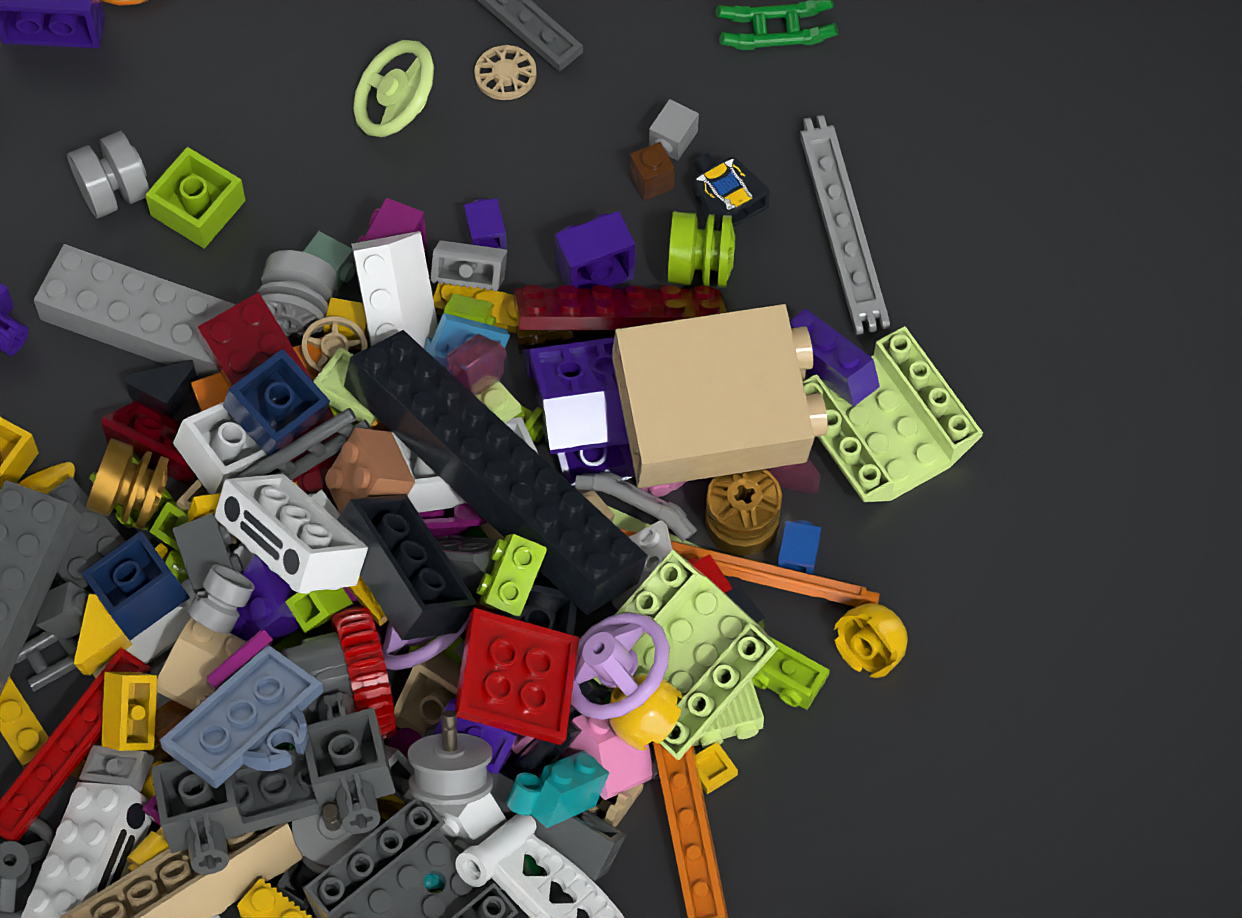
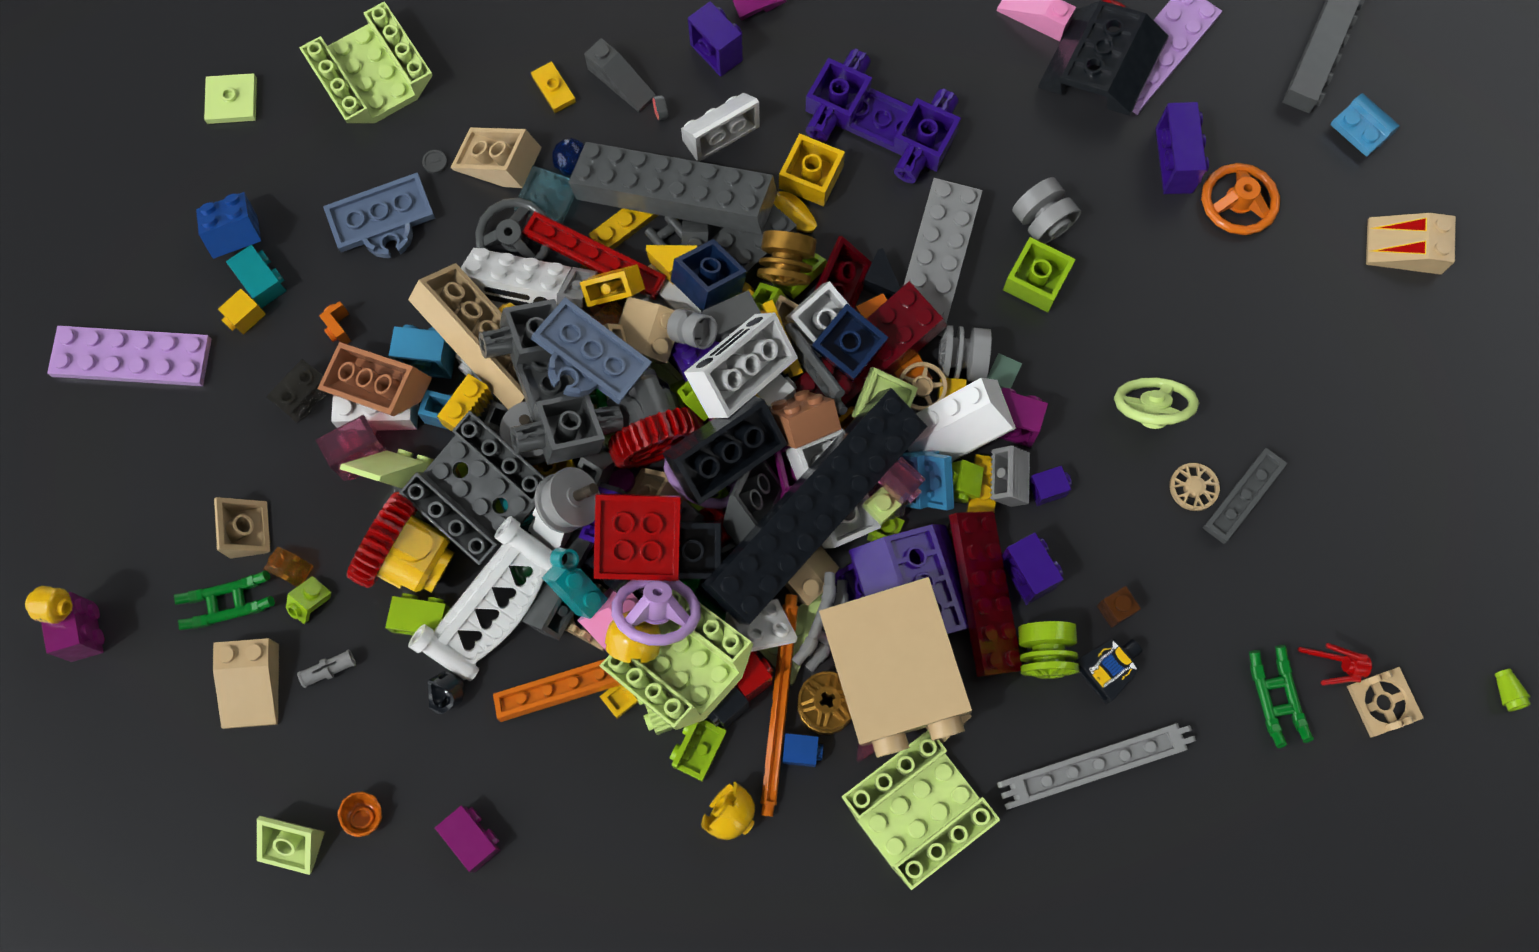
camera: 85 degrees right, 10 degrees up
(238, 660) = (643, 346): magenta tile -> none
(512, 574) = (719, 525): lime bracket -> none
(674, 128) = (1160, 620): light grey brick -> none
(838, 361) = (965, 760): dark purple brick -> none

